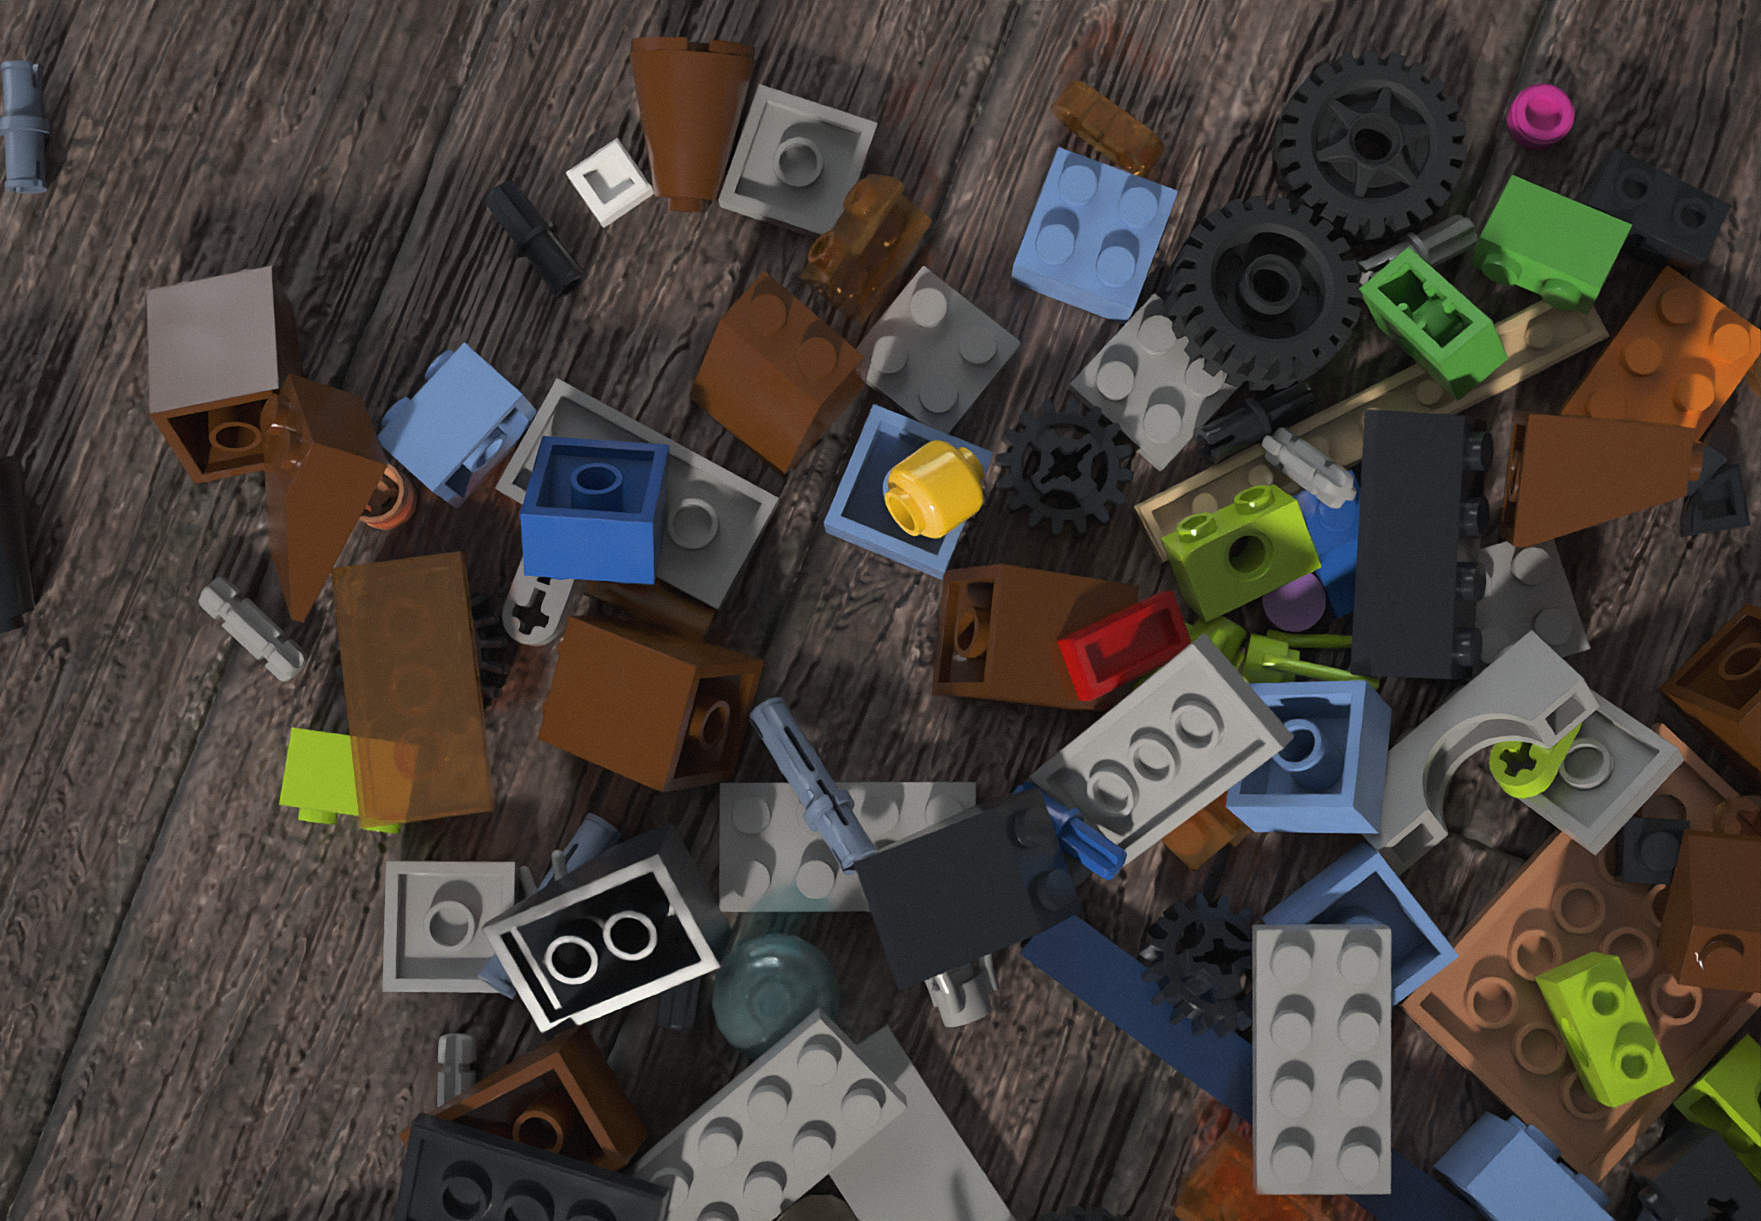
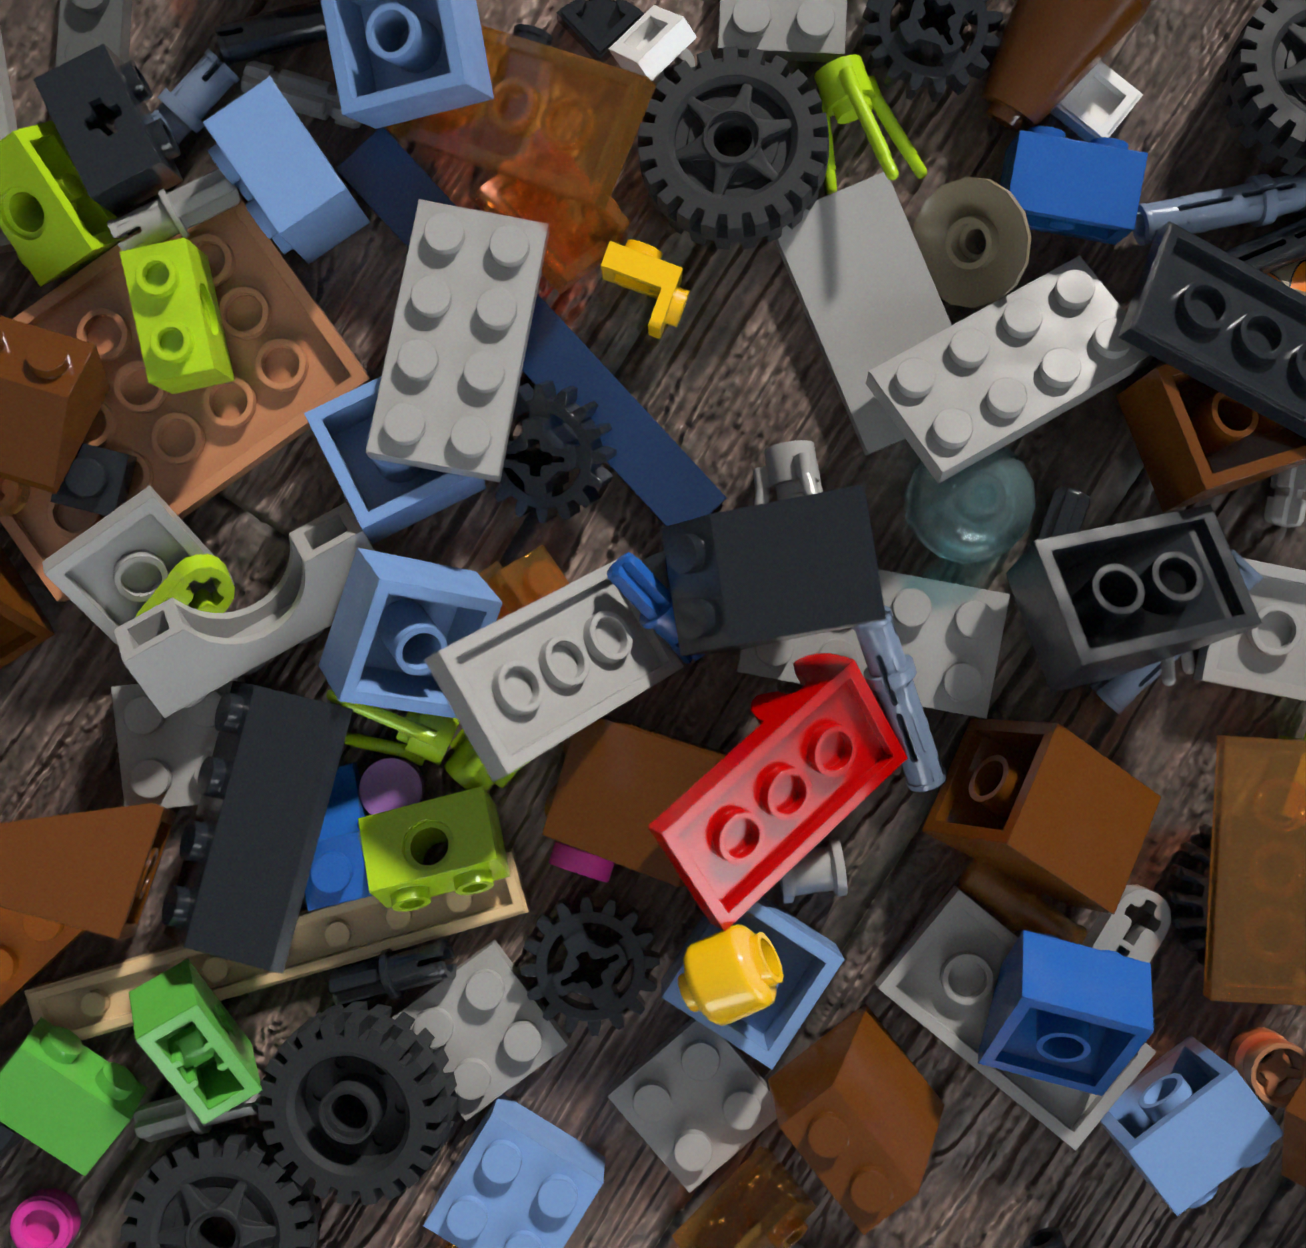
camera: 170 degrees left, 5 degrees up
(865, 599) = (816, 872): none -> light grey bush
(919, 677) = (779, 787): none -> red hinge
(1092, 566) = (580, 862): none -> dark pink tile
(1124, 645) = (570, 779): red tile -> none
(1152, 1169) = (642, 270): none -> yellow bracket
(1309, 467) = (349, 920): light grey axle -> none
(1629, 1135) = (176, 211): none -> light grey axle

